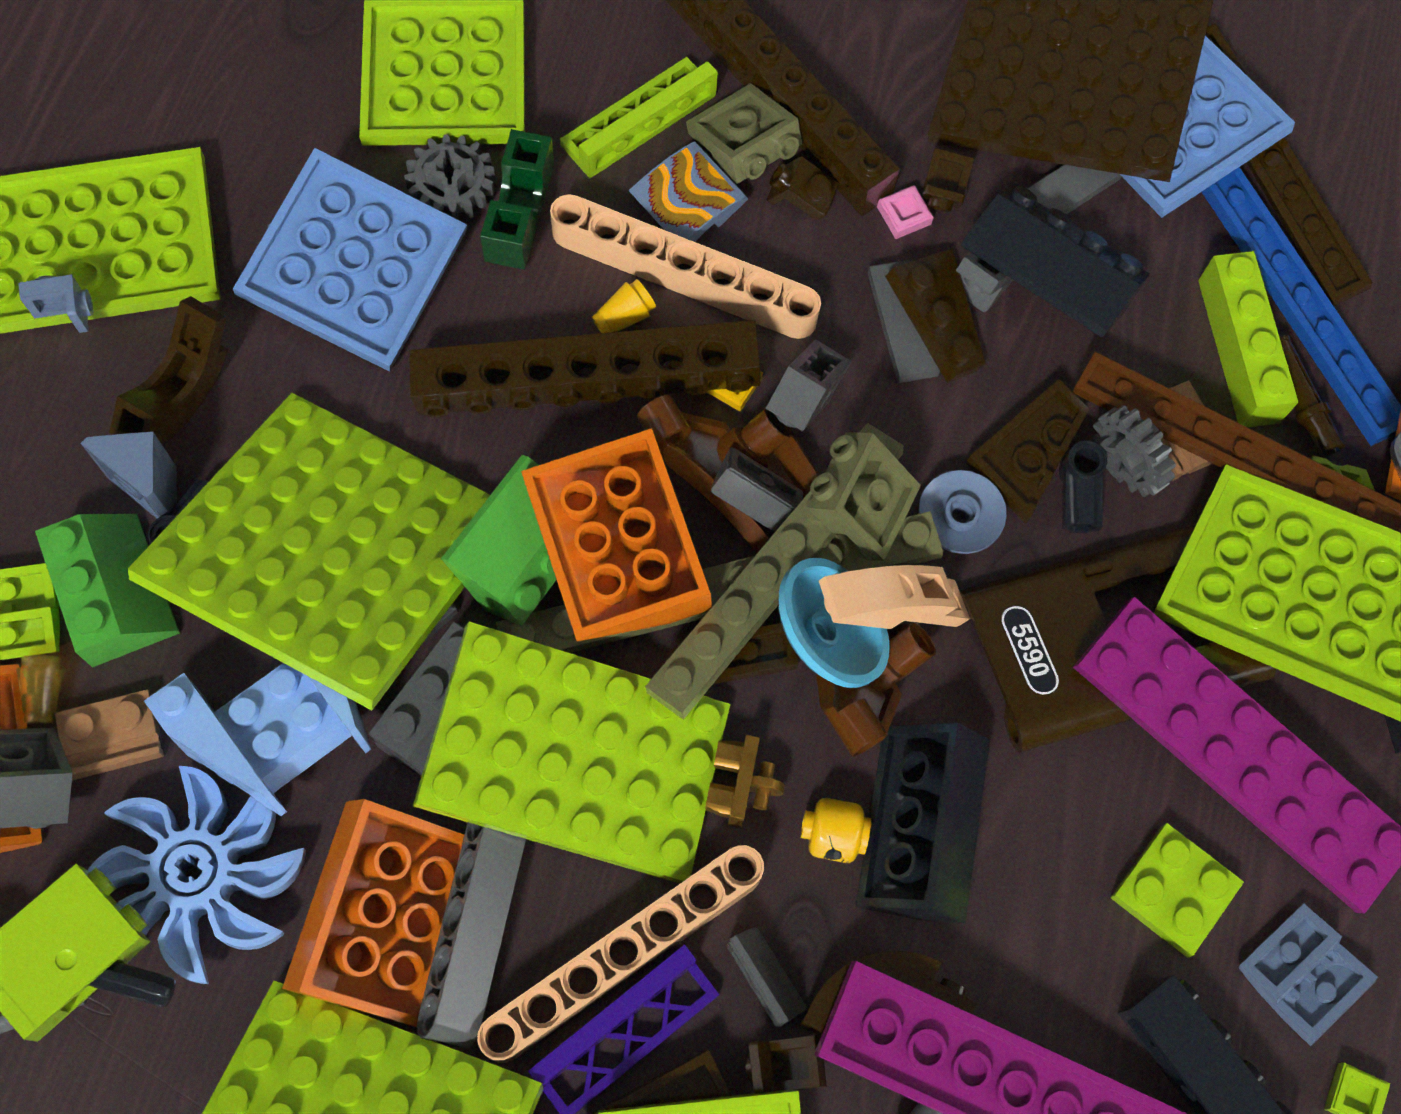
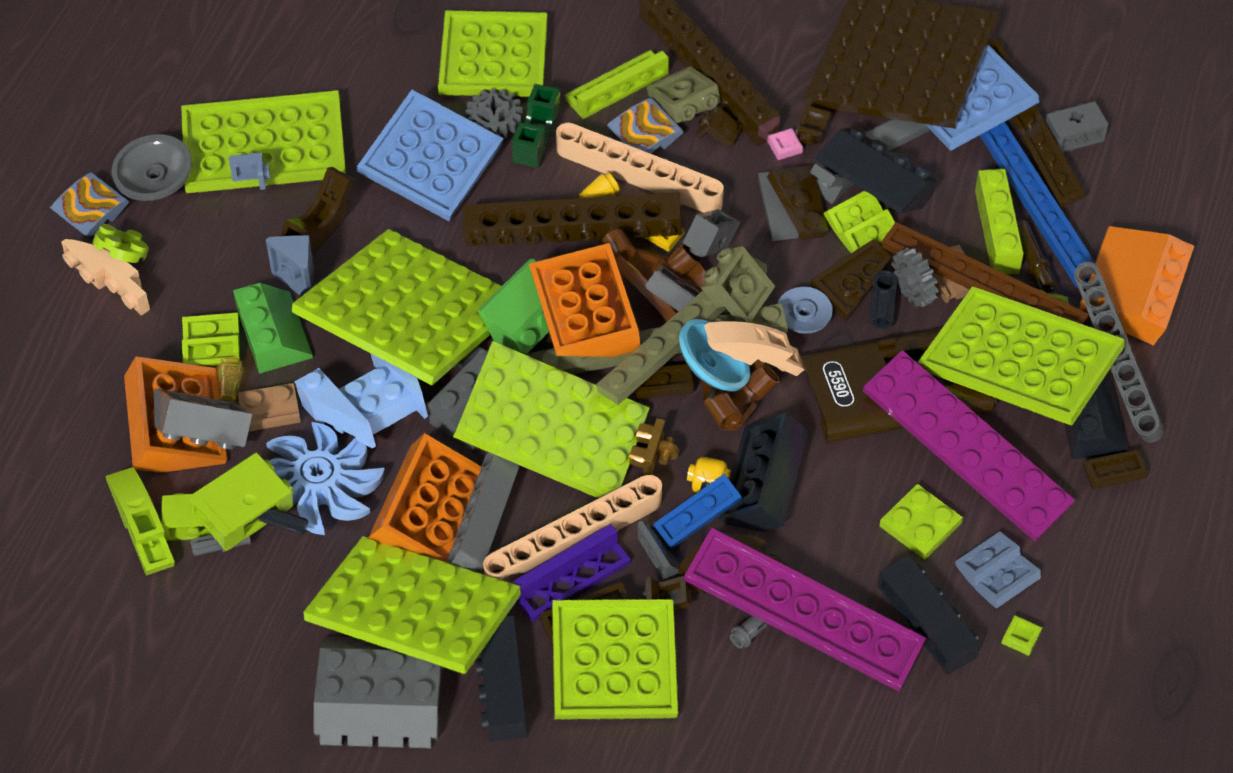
camera: 10 degrees right, 15 degrees down
(823, 905) = (697, 511): none -> blue plate
(1034, 347) = (859, 221): none -> lime slope
(1348, 164) = (1077, 126): none -> dark grey brick

